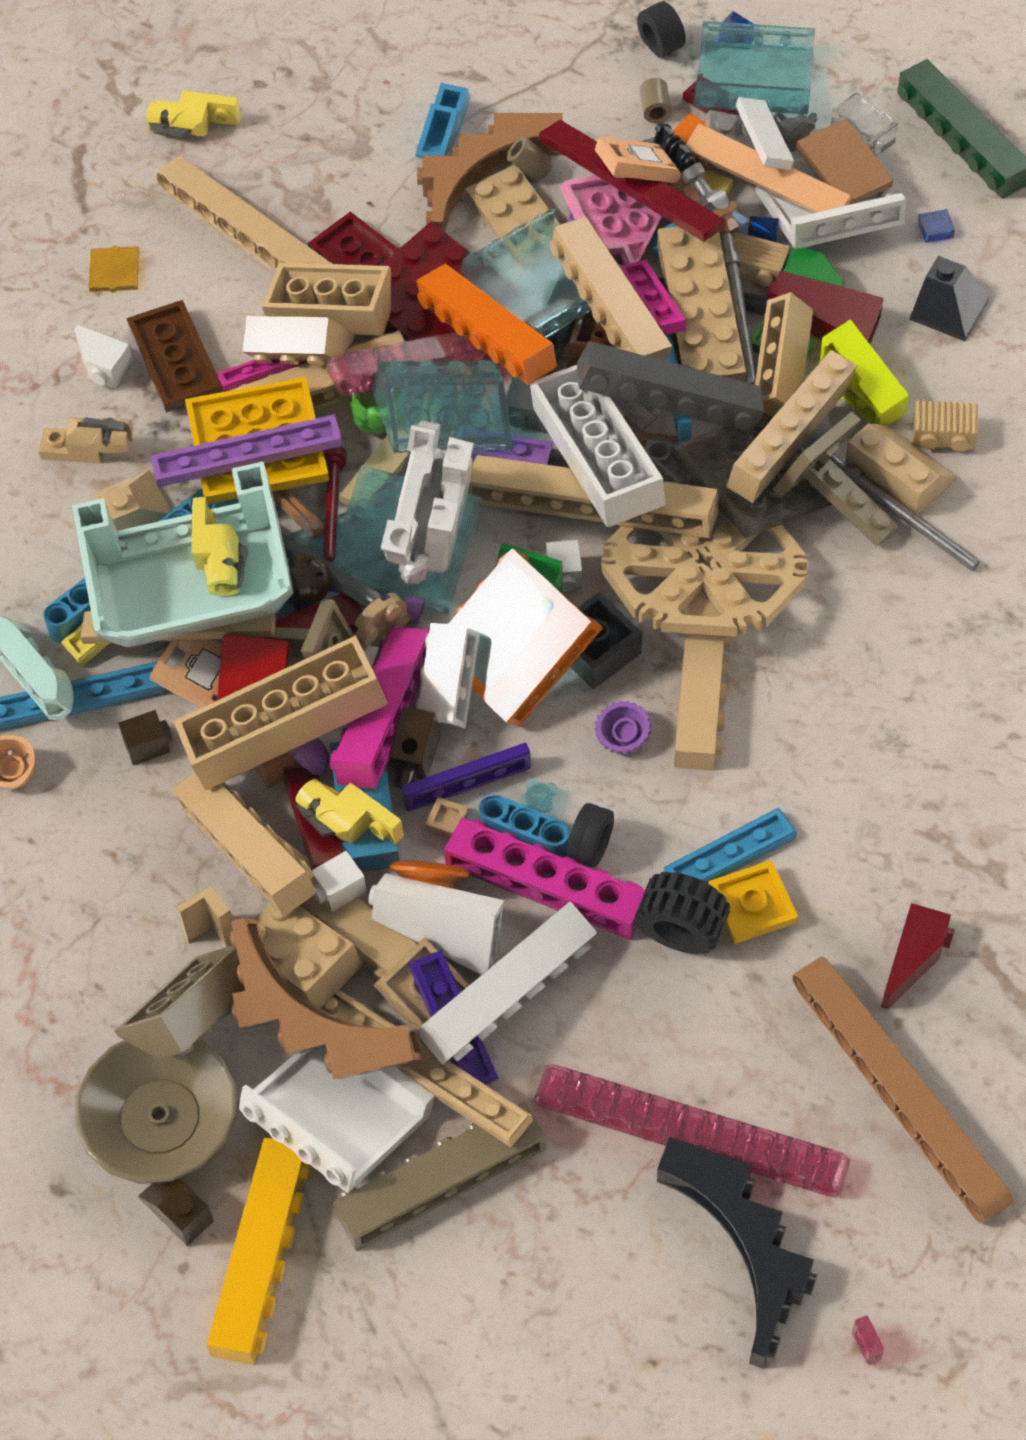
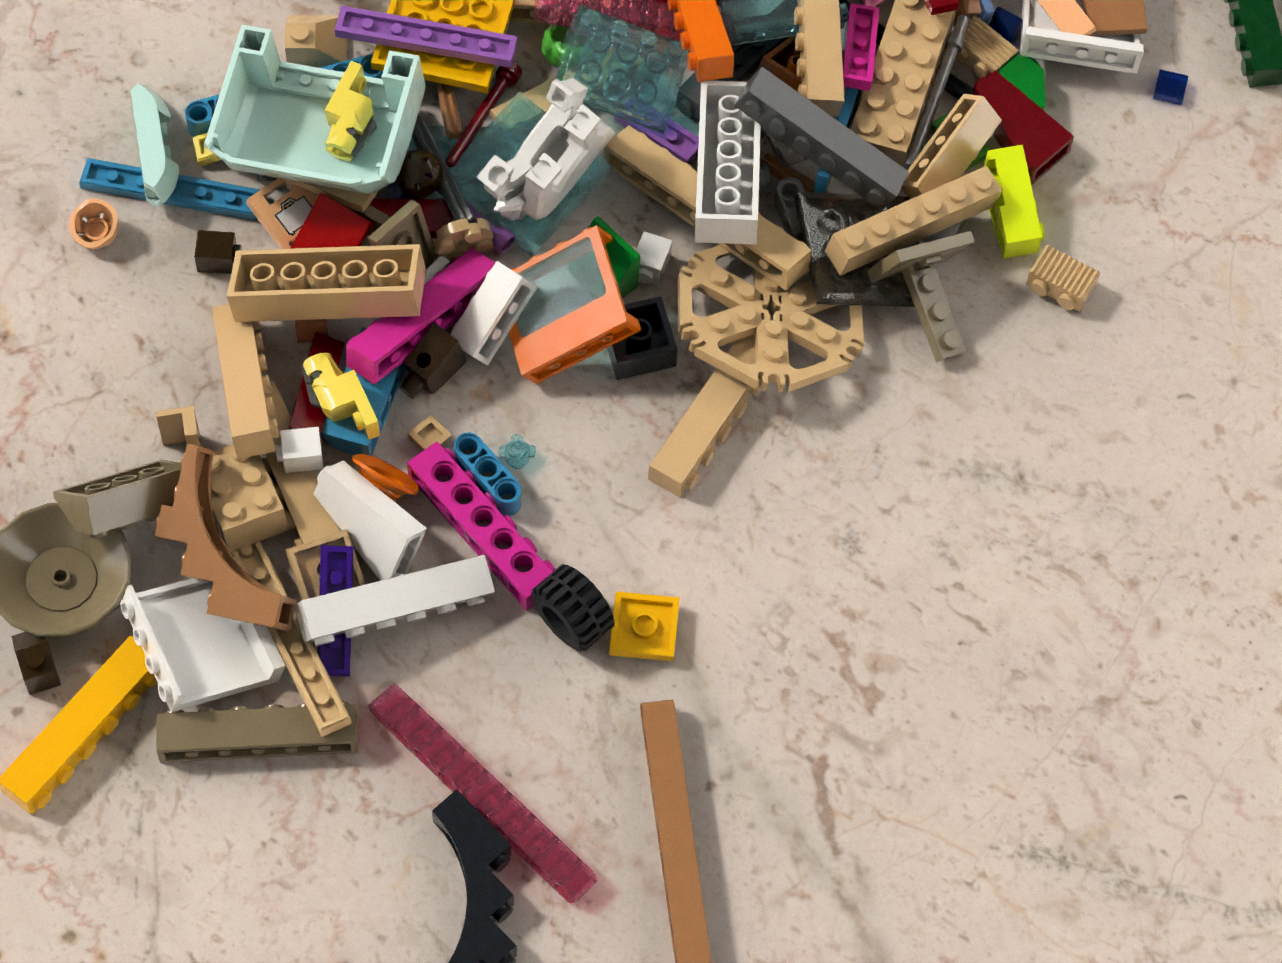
camera: 20 degrees right, 5 degrees up
(312, 756) = (341, 330): medium lavender hat -> none
(466, 777) = (464, 408): dark purple tile -> none
(590, 834) = (536, 505): black tyre -> none
(623, 727) = (620, 425): medium lavender hat -> none
(736, 848) = (653, 574): dark azure tile -> none
(898, 466) = (999, 297): tan slope -> none
(906, 515) = (955, 292): flat silver bar -> none
(918, 950) = (757, 732): dark red slope -> none
(949, 299) = (1138, 163): black slope -> none

